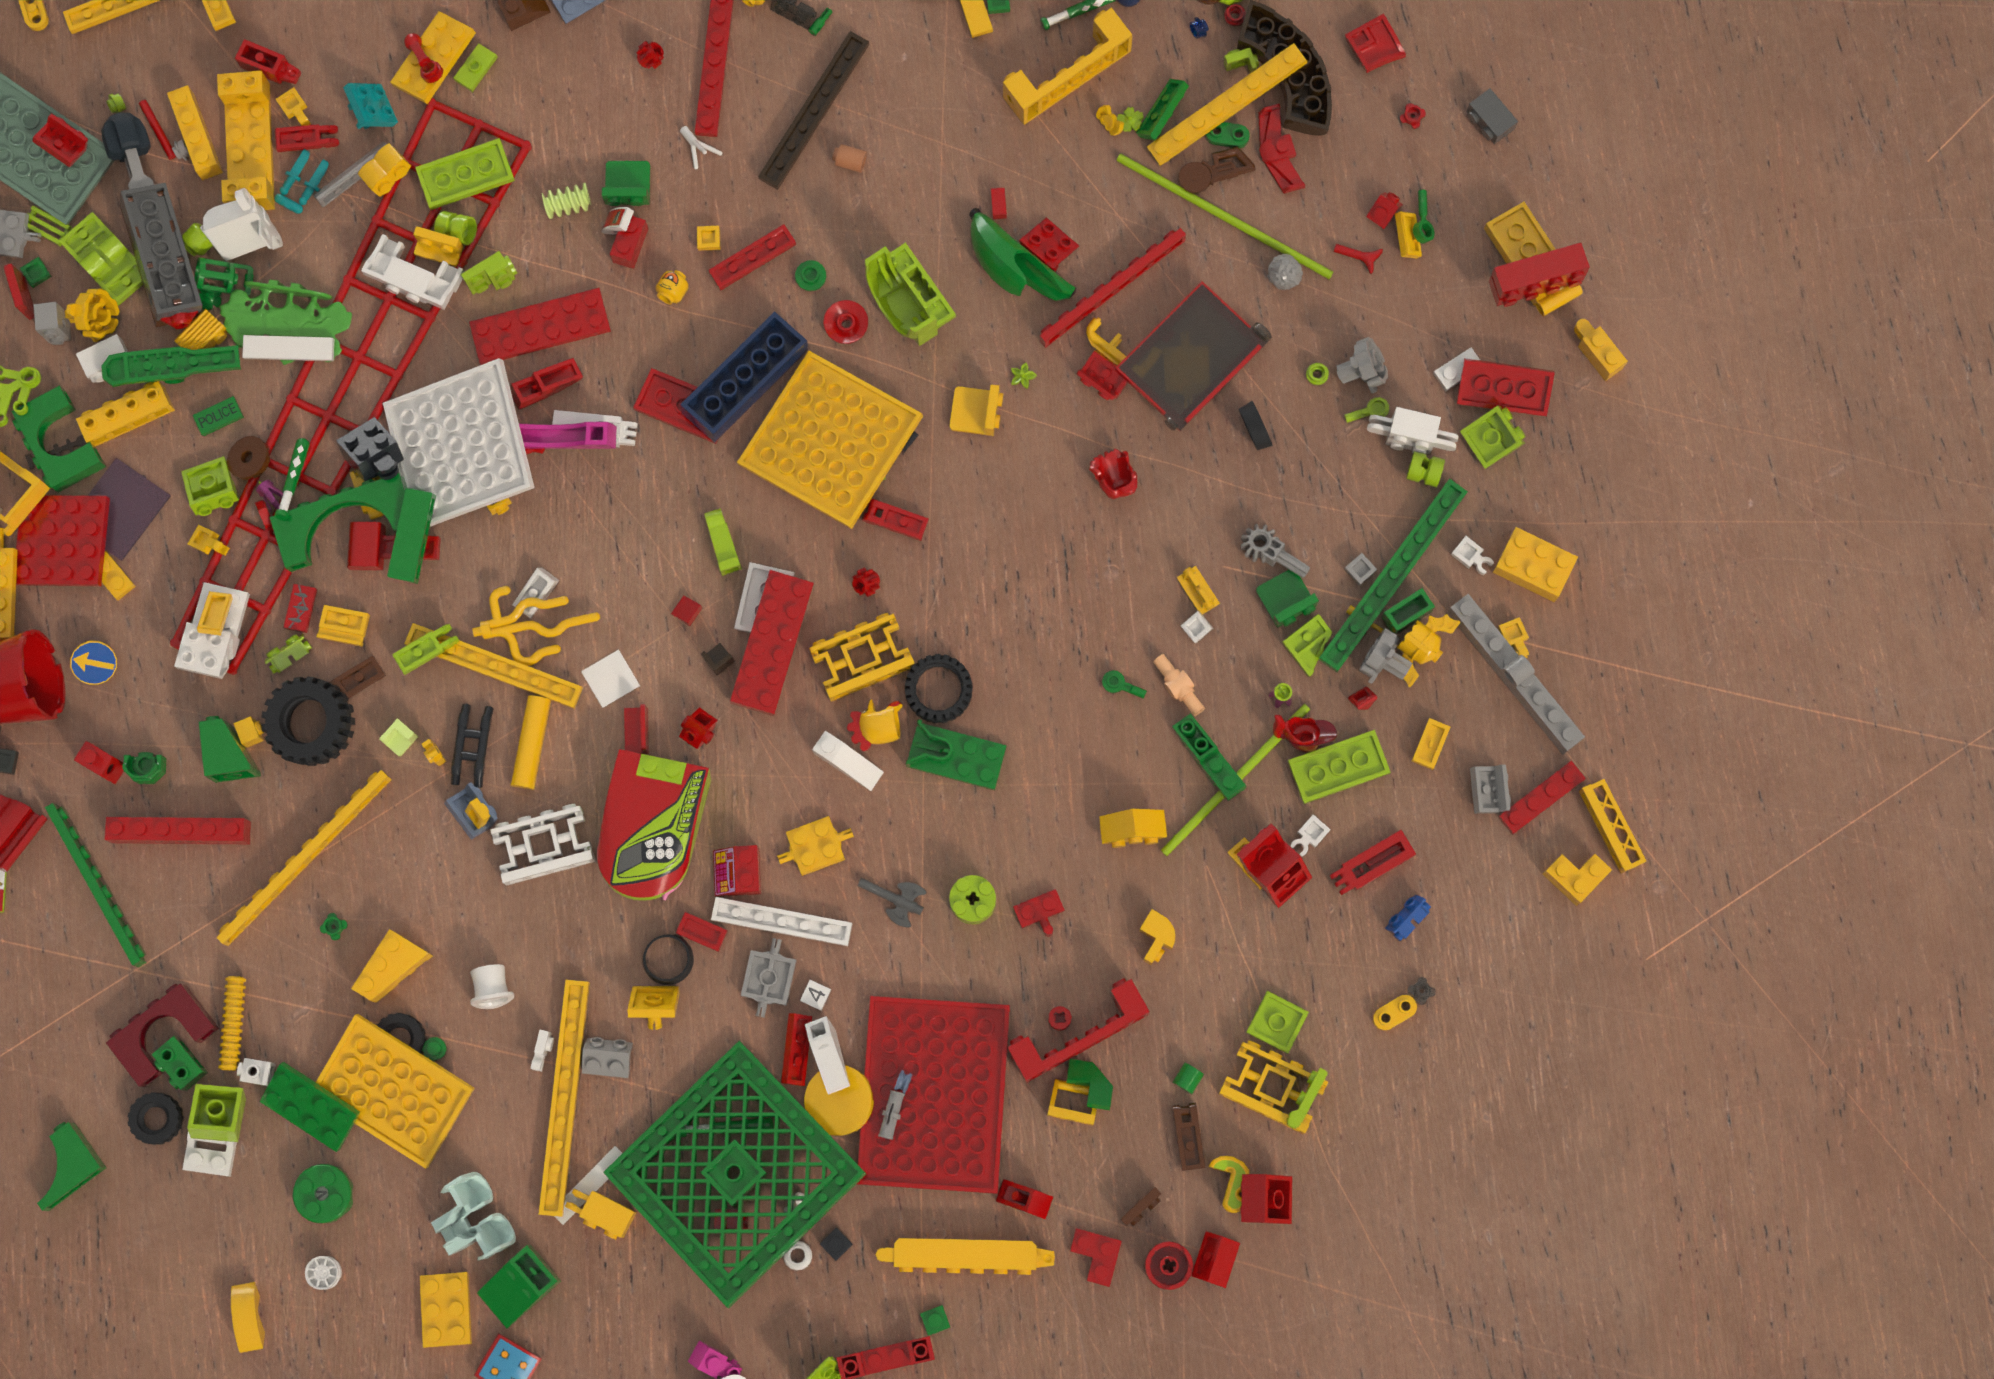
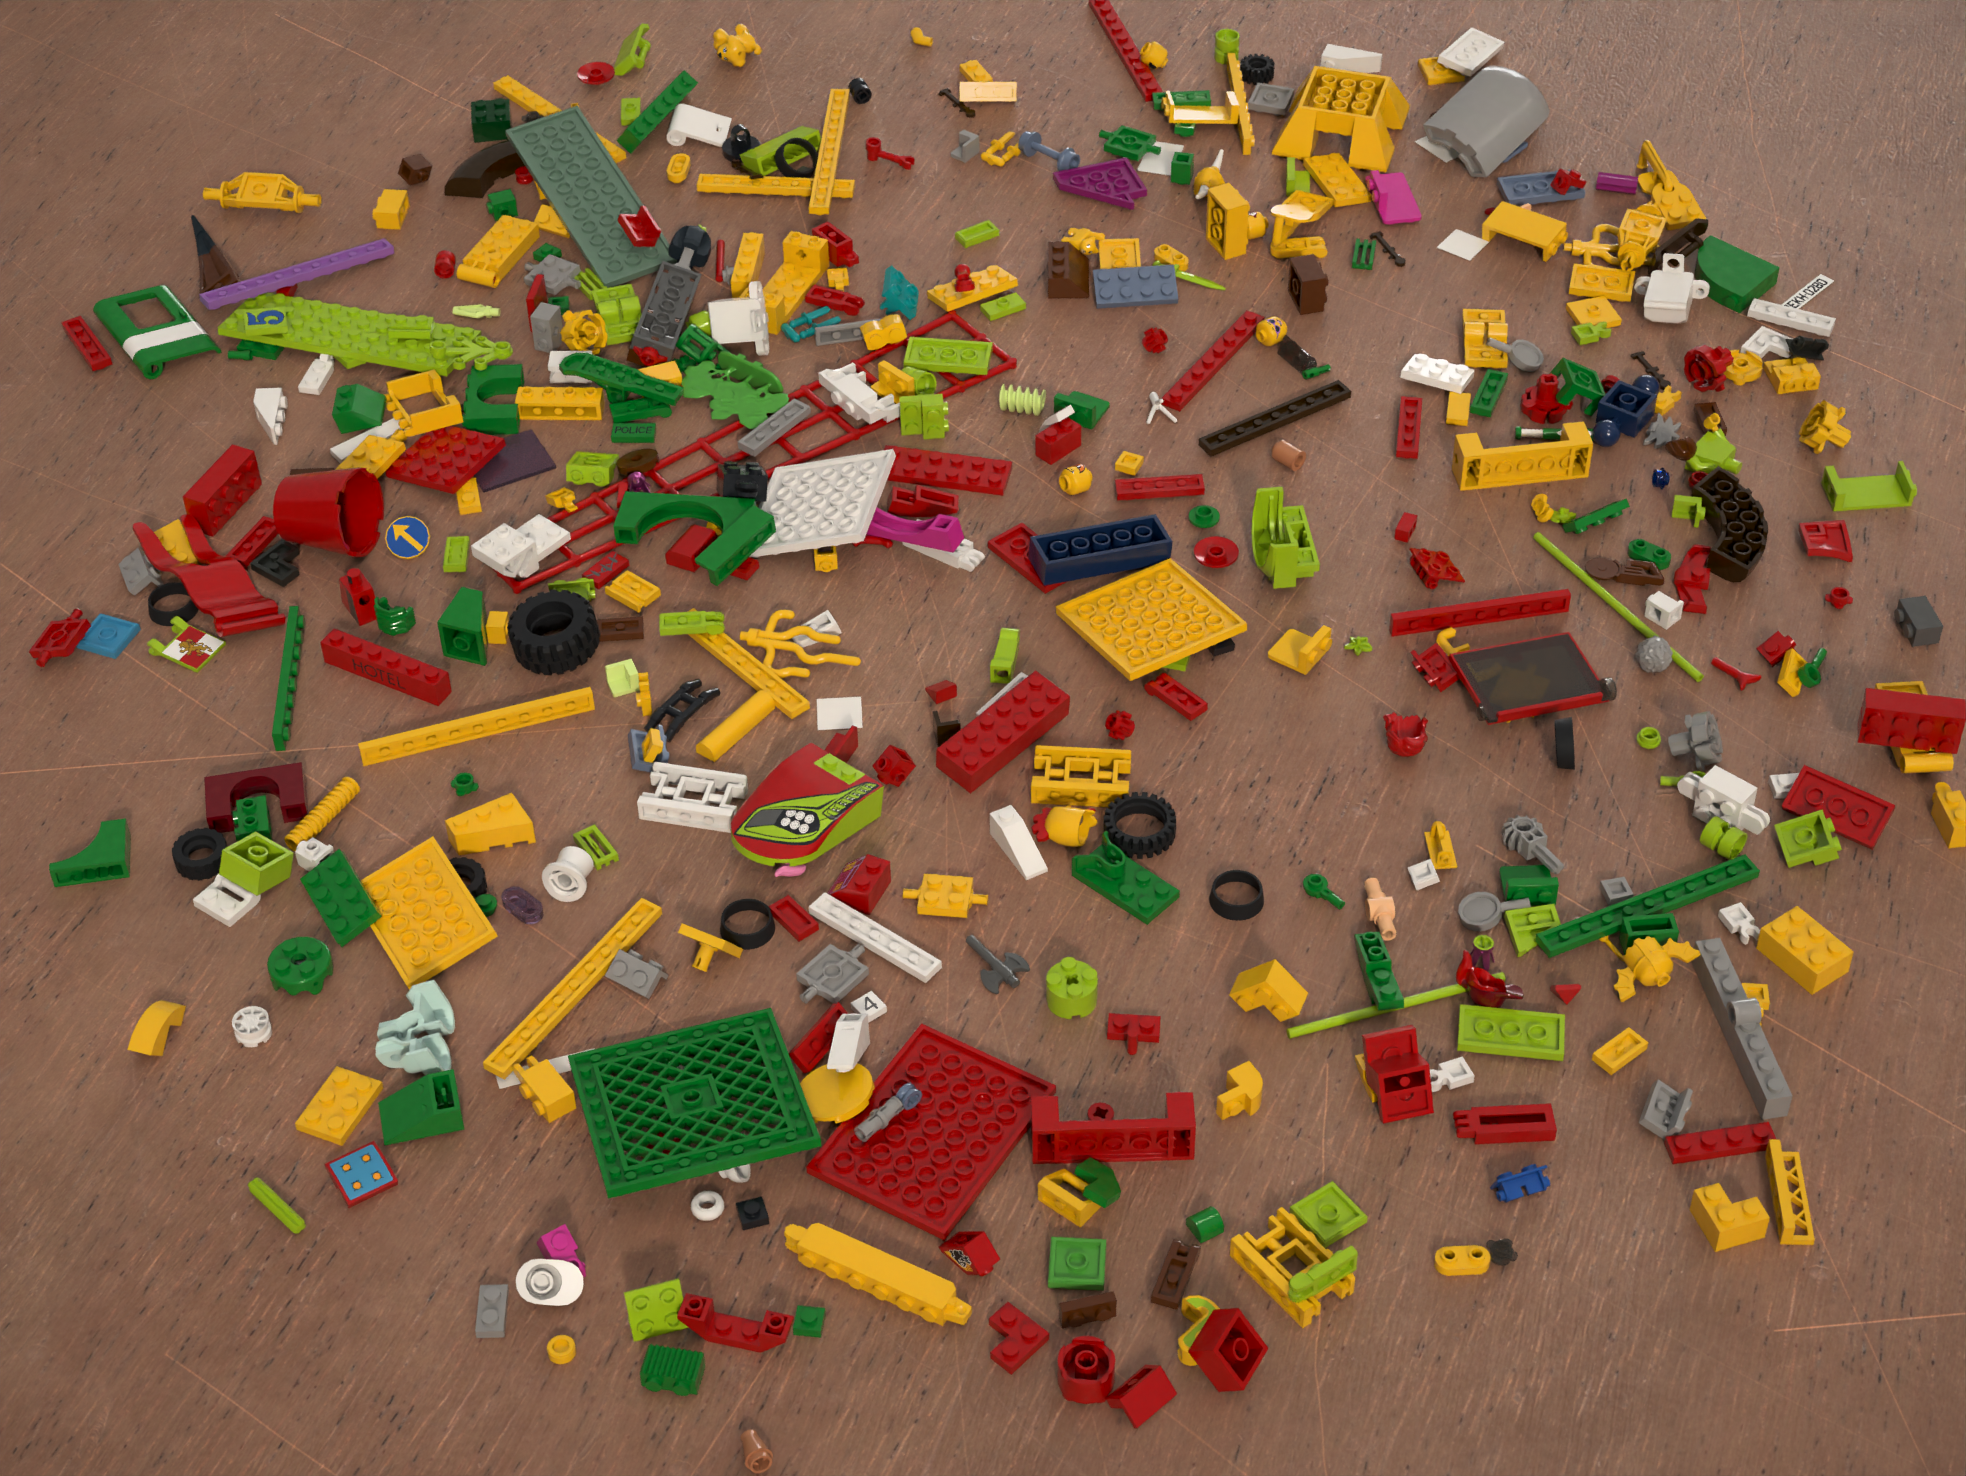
camera: 25 degrees right, 35 degrees down
(150, 658) = (456, 554): none -> lime plate
(203, 387) = (638, 409): none -> green plate
(214, 613) = (531, 525): yellow tile -> none
(288, 348) = (723, 405): white tile -> none
(296, 464) = (666, 476): green piece -> none
(354, 353) = (774, 427): none -> light grey plate
(468, 1034) = (525, 908): none -> plate
(507, 948) = (612, 854): none -> lime tile
(543, 1045) = (583, 939): white plate -> none
(943, 64) = (1409, 427): none -> red plate
(1011, 263) = (1407, 574): green piece -> none
(1054, 747) = (1231, 911): none -> black tyre
(1110, 1165) = (1077, 1263): none -> bright green plate
(1227, 104) = (1659, 525): yellow plate -> none
(1262, 645) = (1483, 910): none -> light grey piece
(1268, 206) = (1663, 609): none -> white brick
(1383, 656) = (1603, 953): light grey piece -> none

